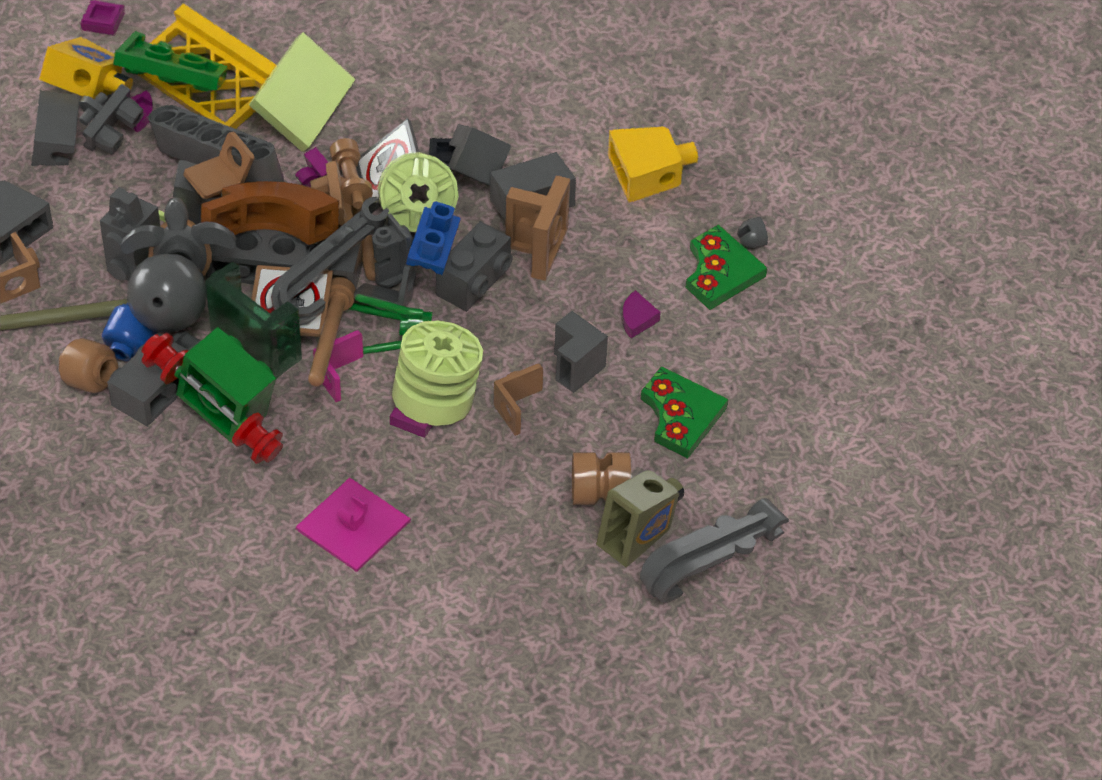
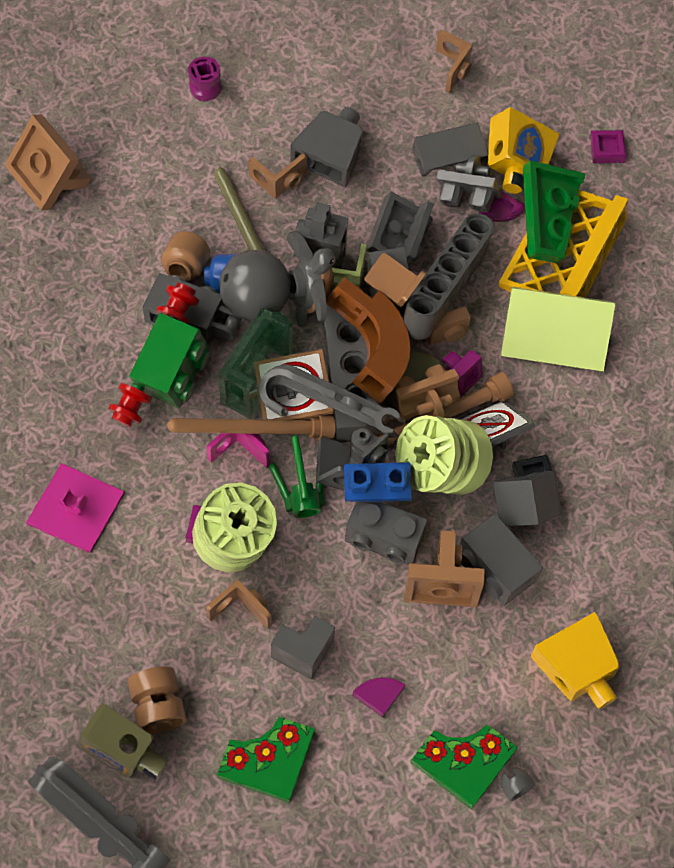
camera: 75 degrees right, 15 degrees up
(135, 175) = (400, 226): none -> dark grey bracket

